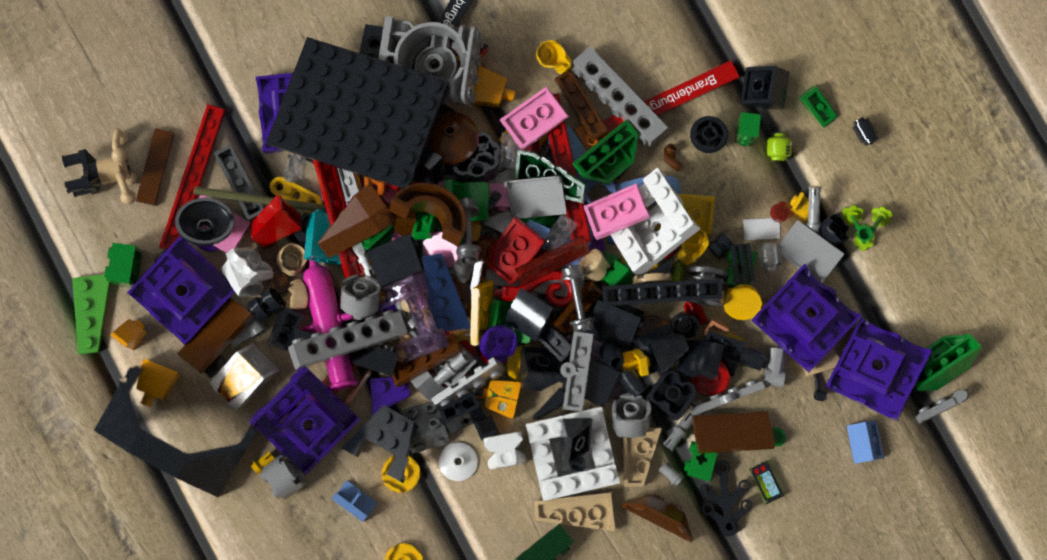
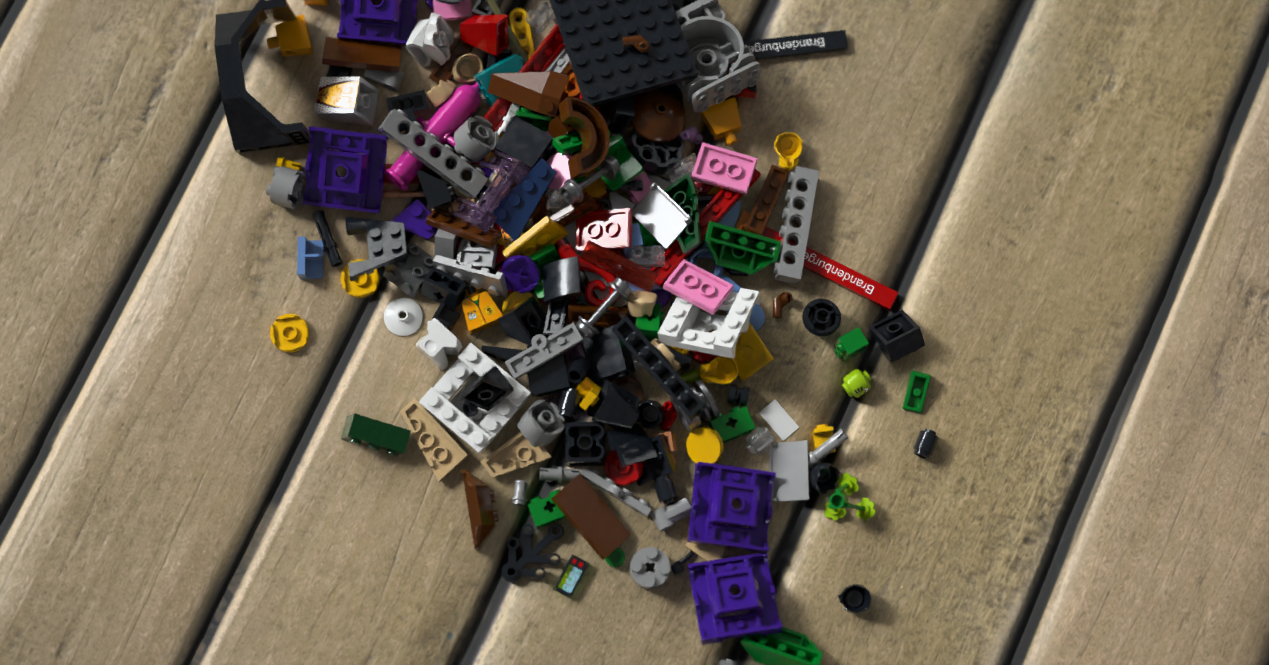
camera: 50 degrees right, 5 degrees down
(268, 303) = (416, 75): black wheel -> none
(356, 478) = (329, 244): none -> black pin
(386, 108) = (636, 41): none -> reddish brown arm
(451, 368) = (471, 251): light grey pin -> none
(483, 122) = (692, 134): none -> lavender arm
(742, 261) = (747, 410): black tile -> none
(779, 212) = (803, 423): clear red plate -> none
(817, 419) = (648, 579): none -> light grey brick
(865, 441) = (667, 634): medium blue panel -> none
(946, 276) = (855, 598): none -> black hair

